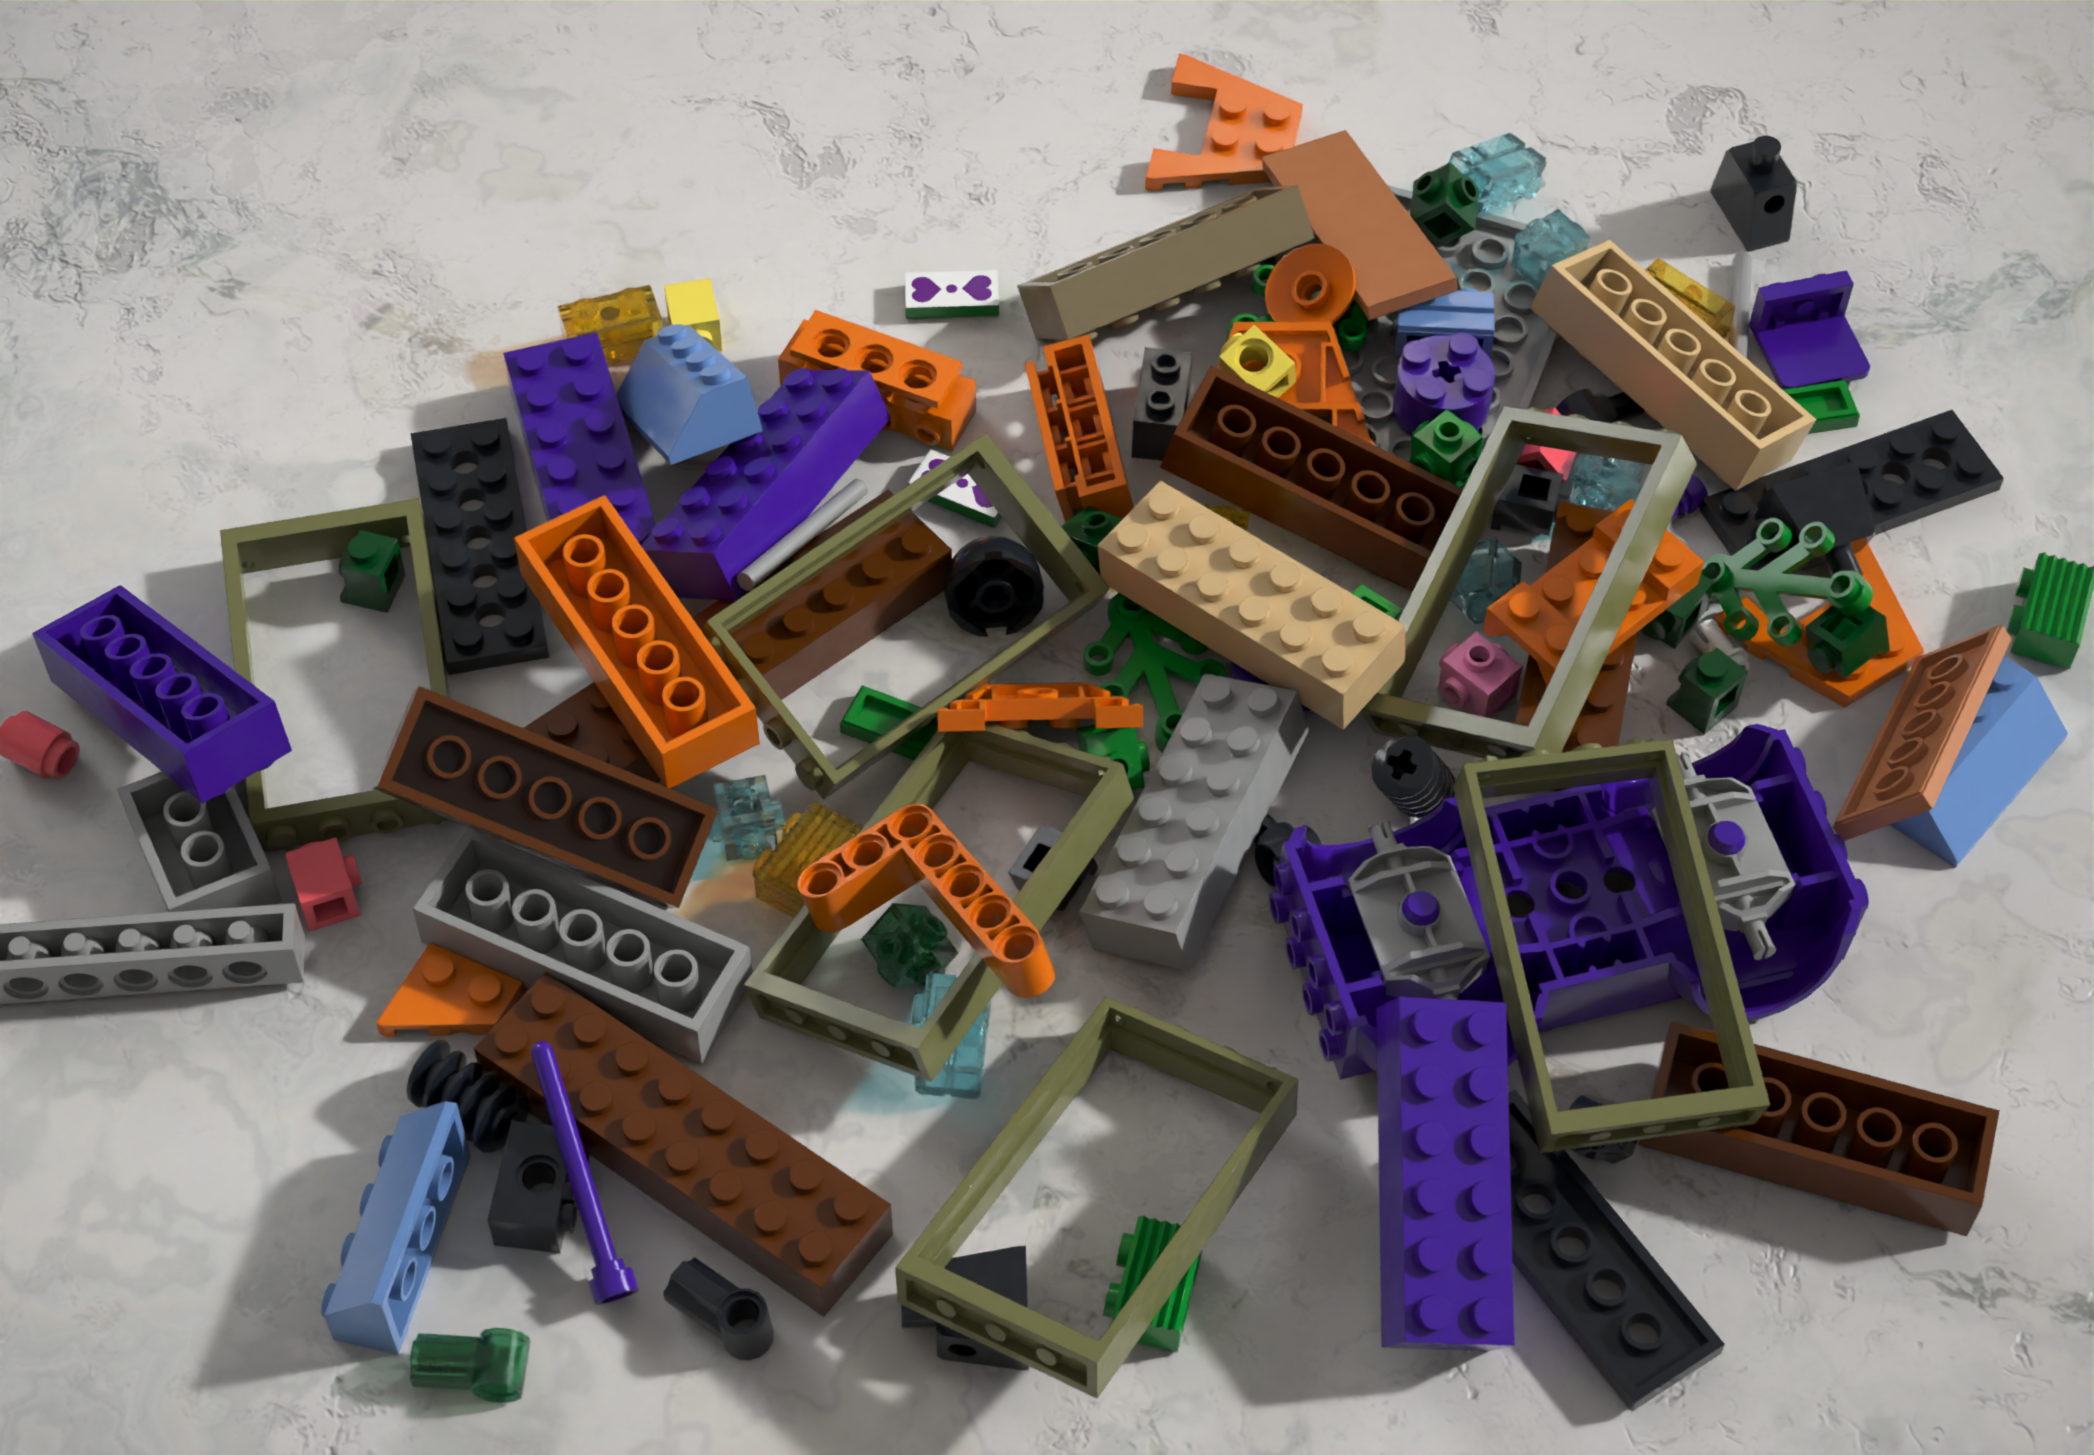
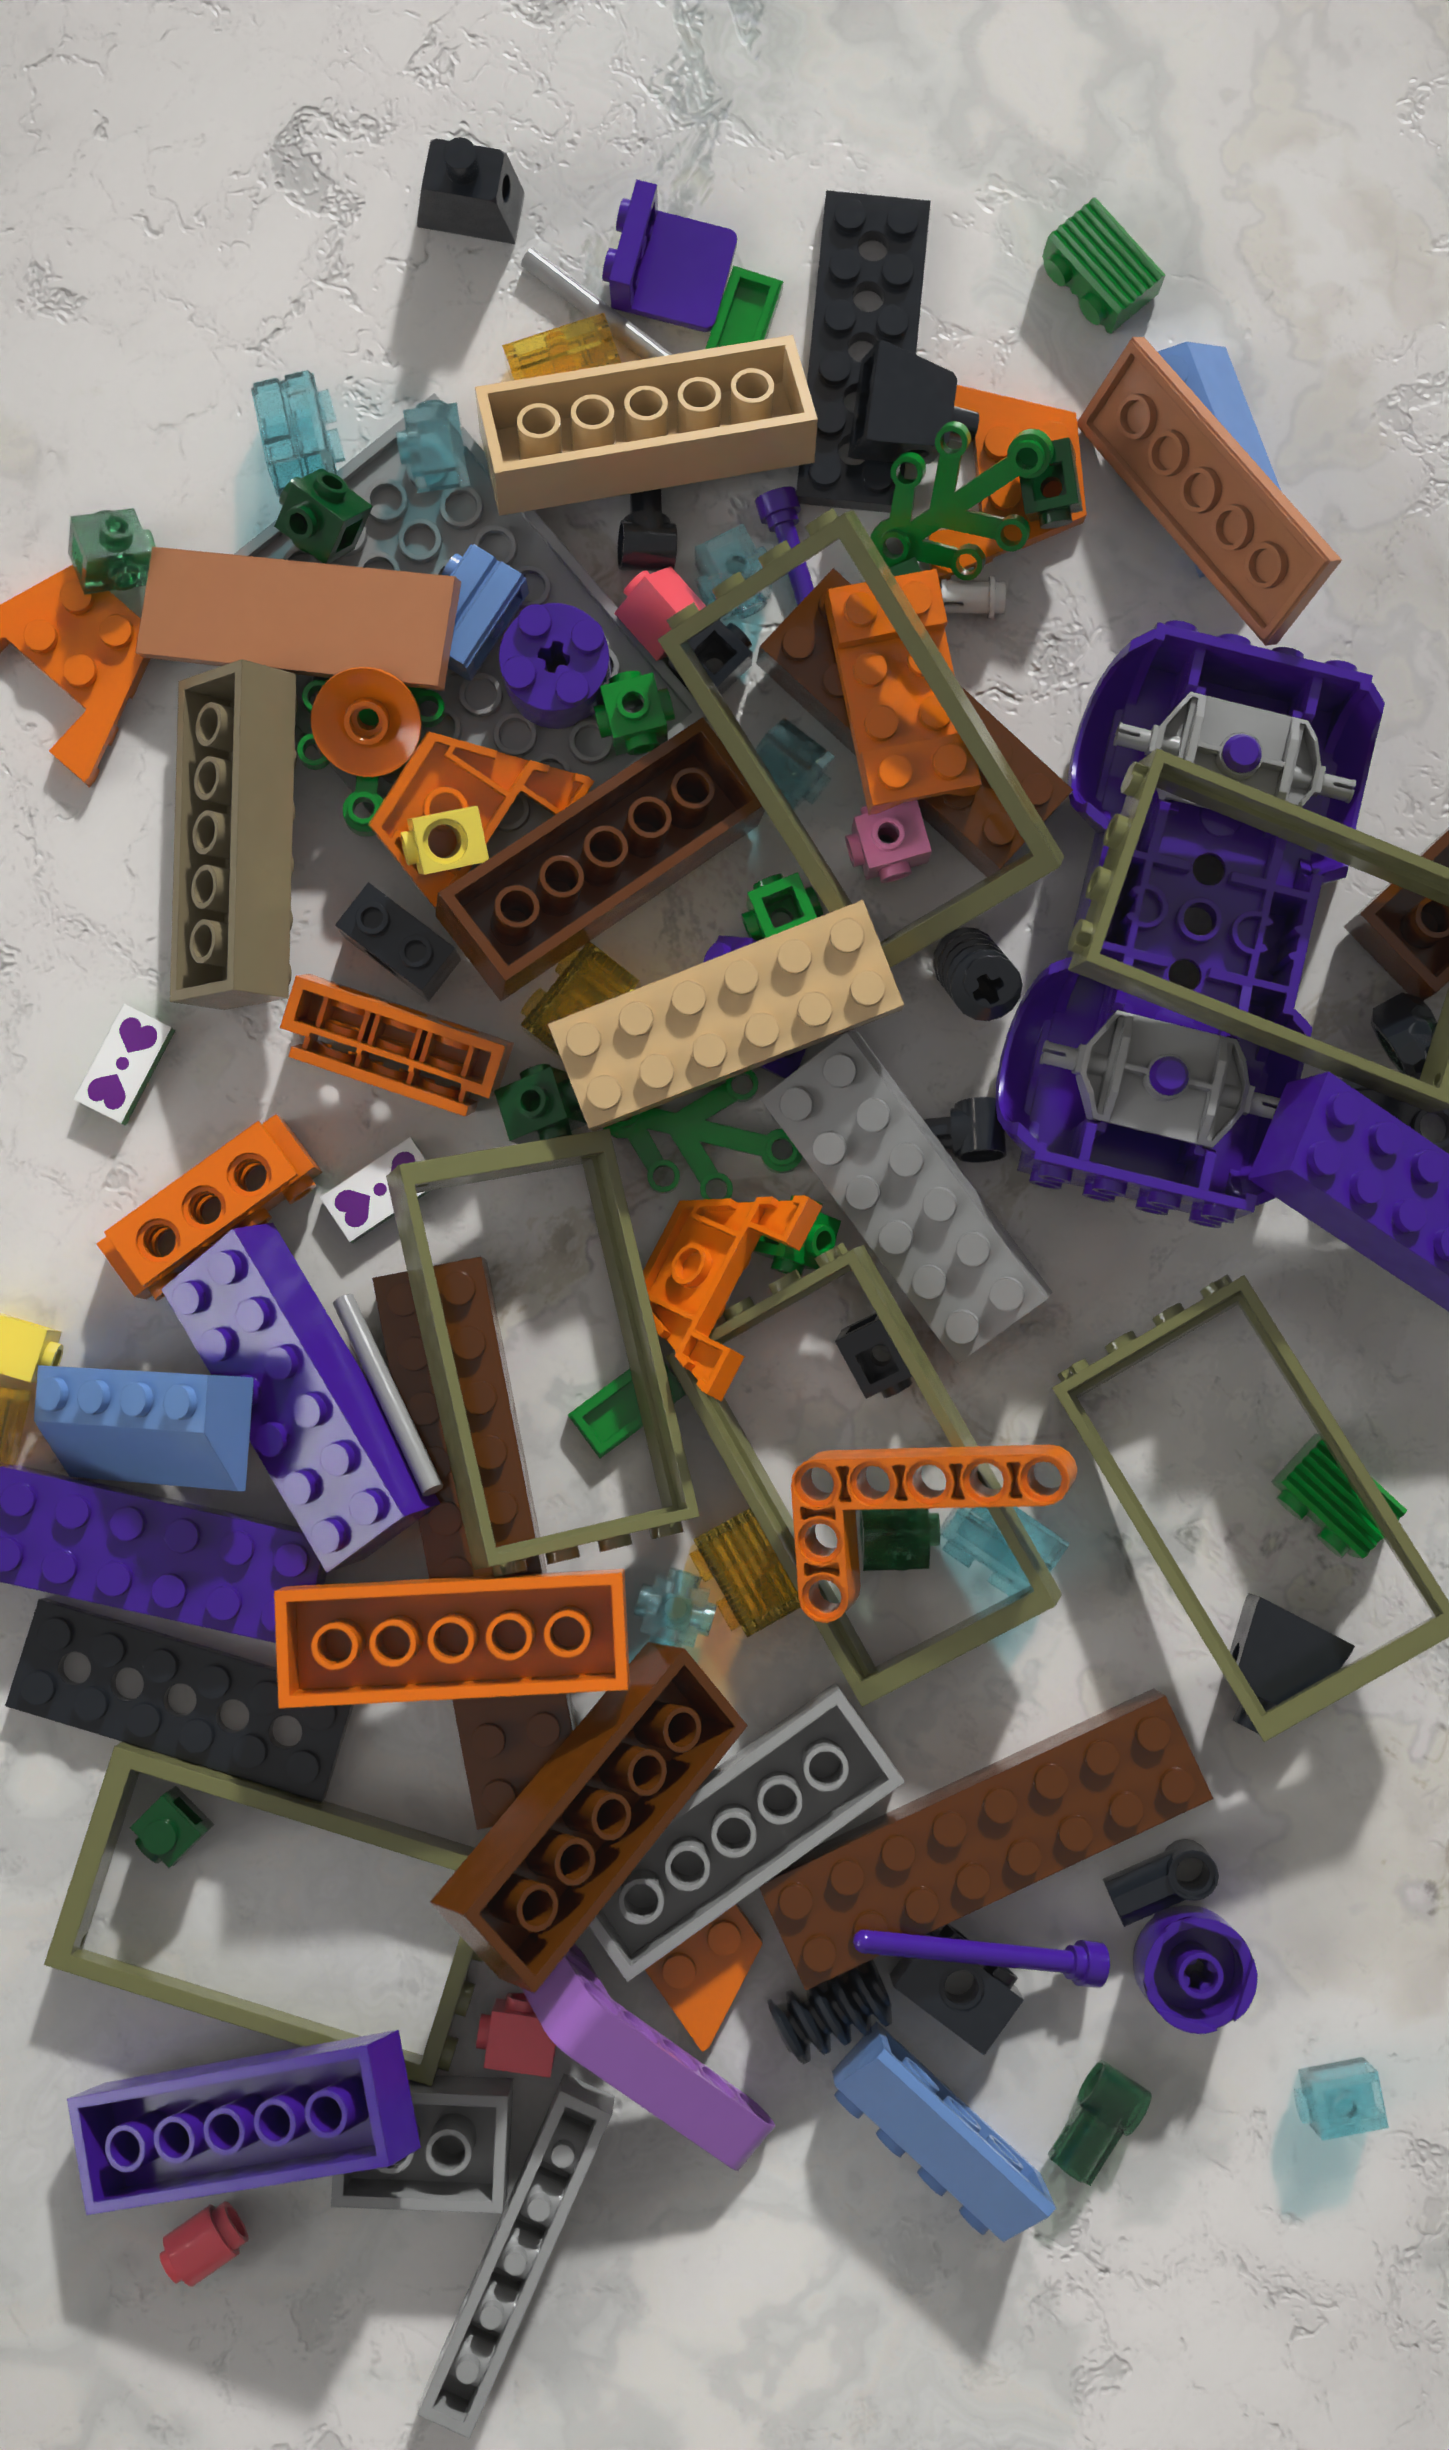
camera: 65 degrees left, 30 degrees up
(345, 966) = (646, 2064): none -> medium lavender beam
(661, 1392) = (1205, 1997): none -> dark purple brick
(993, 586) = (526, 1231): black cylinder -> none
(1324, 108) = (110, 550): none -> clear green brick
(1708, 690) = (1015, 639): dark green brick -> none

